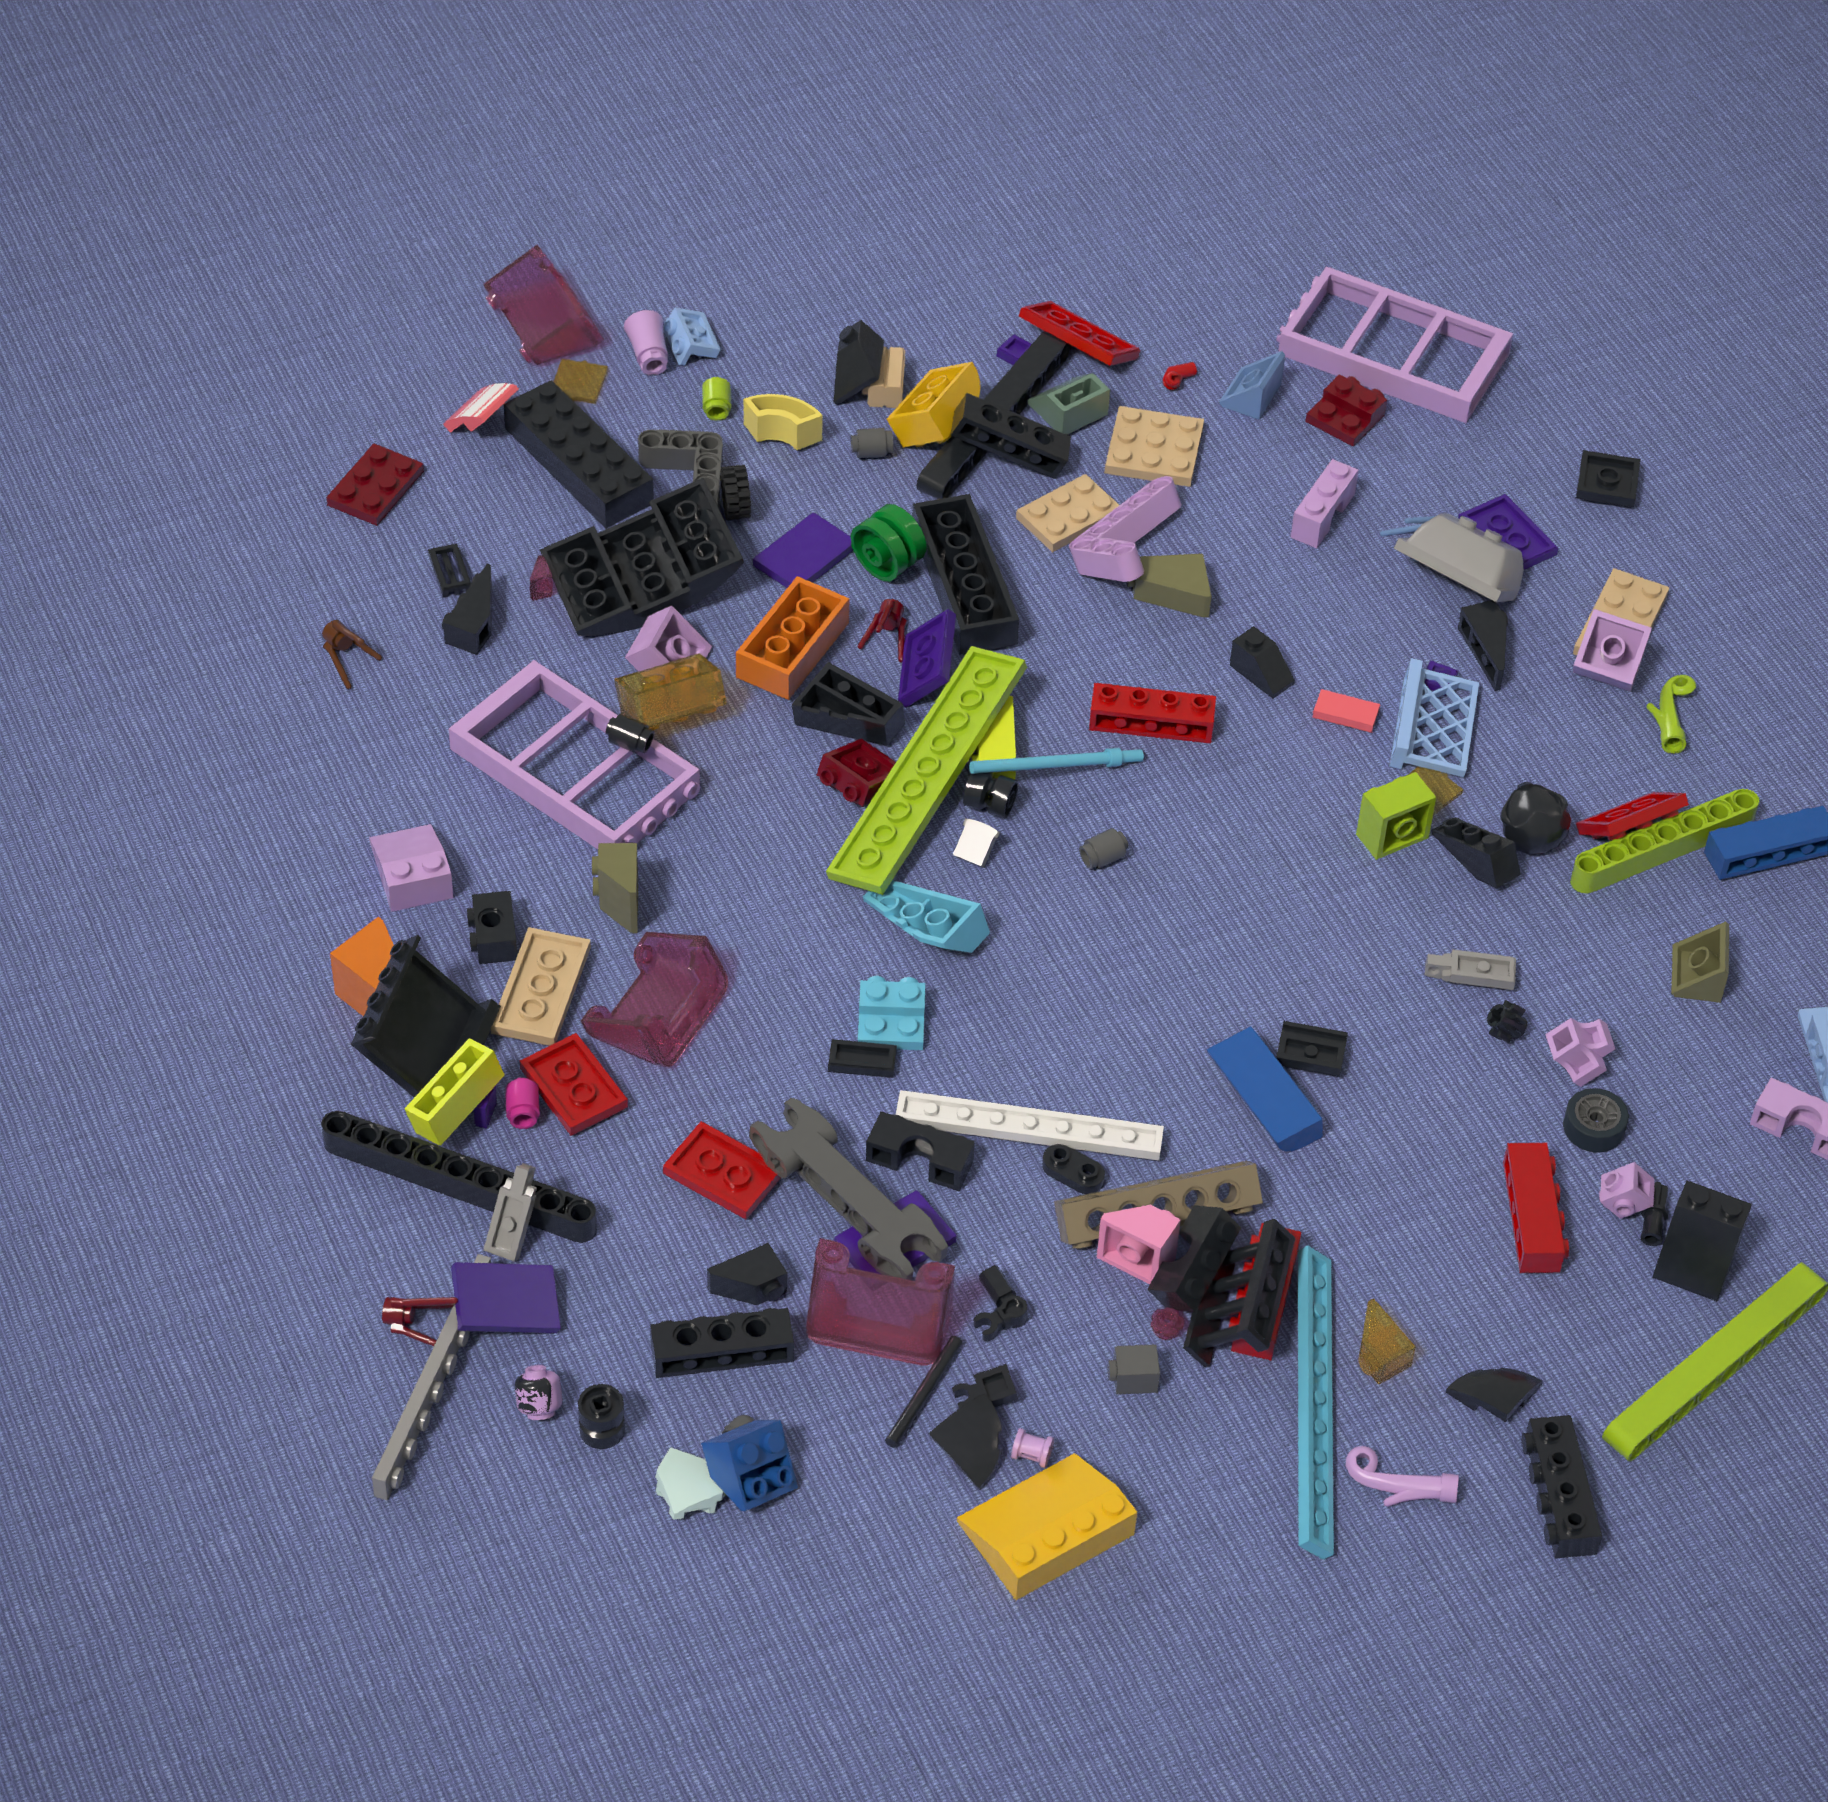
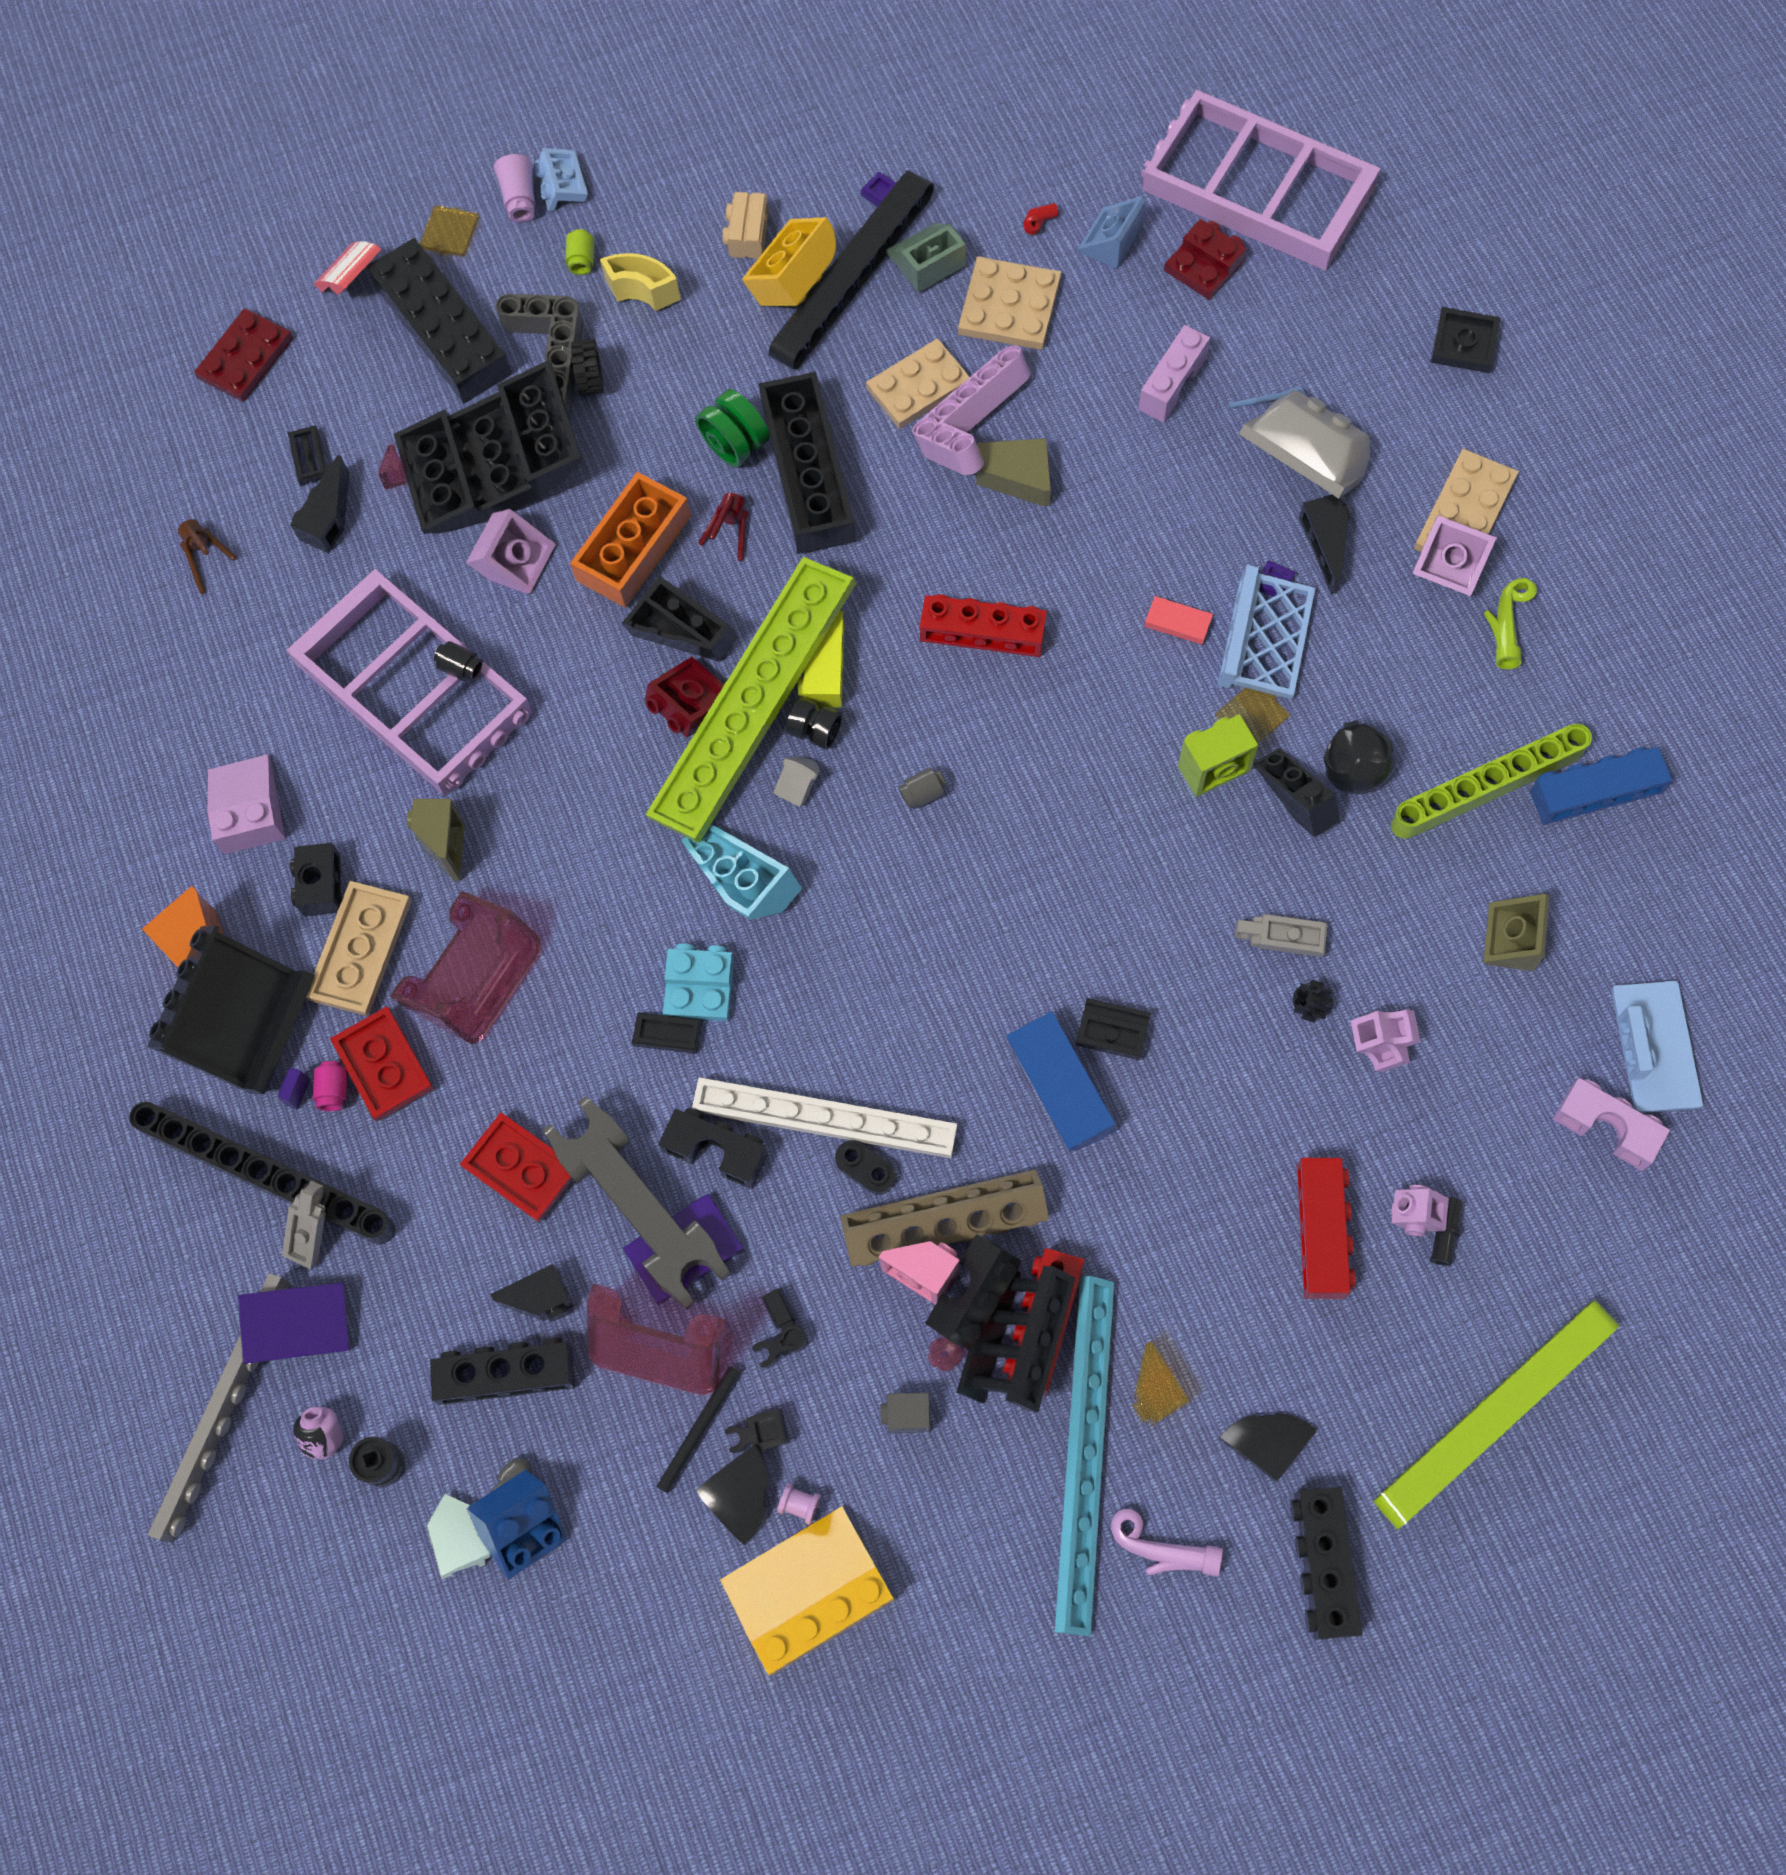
camera: 10 degrees right, 20 degrees up
(401, 1311) = (198, 1329): dark red plant -> none
(454, 1092) = (253, 1091): neon yellow brick -> none
(542, 308) = (417, 148): clear pink windscreen -> none
(671, 691) = (504, 607): clear yellow brick -> none
(804, 551) = (653, 433): dark purple tile -> none
(857, 360) = (717, 210): black slope -> none
(872, 442) = (728, 303): dark grey brick -> none
(927, 658) = (761, 564): dark purple tile -> none
(1010, 435) = (862, 299): black brick -> none
(1079, 333) = (943, 171): red tile -> none
(1110, 757) = (938, 678): medium azure bar -> none
(1261, 662) = (1096, 565): black slope -> none
(1516, 528) = (1361, 399): dark purple tile -> none
(1592, 1106) = (1412, 1118): black wheel -> none
(1635, 813) = (1459, 753): red plate -> none
(1702, 1240) = (1492, 1279): black slope -> none

